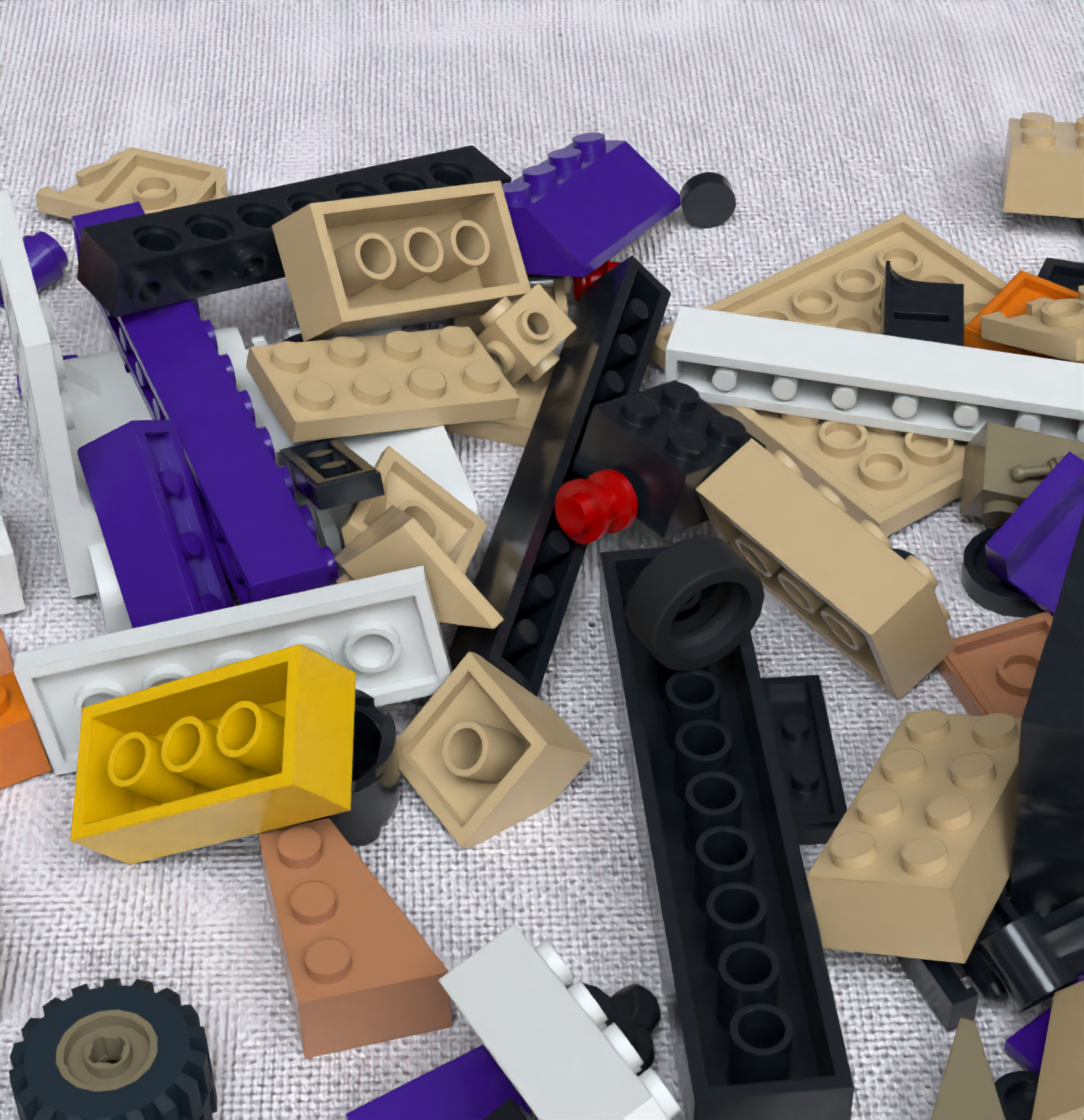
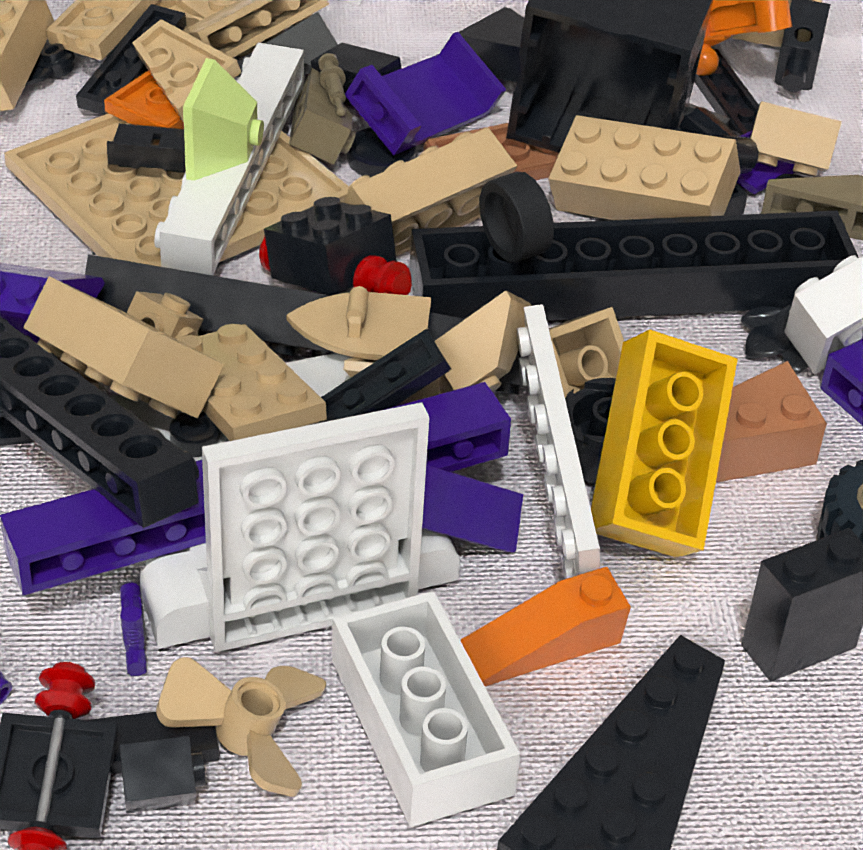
camera: 95 degrees left, 0 degrees up
(492, 489) = (362, 322): none -> tan shield
(863, 298) = (218, 123): none -> yellowish green slope

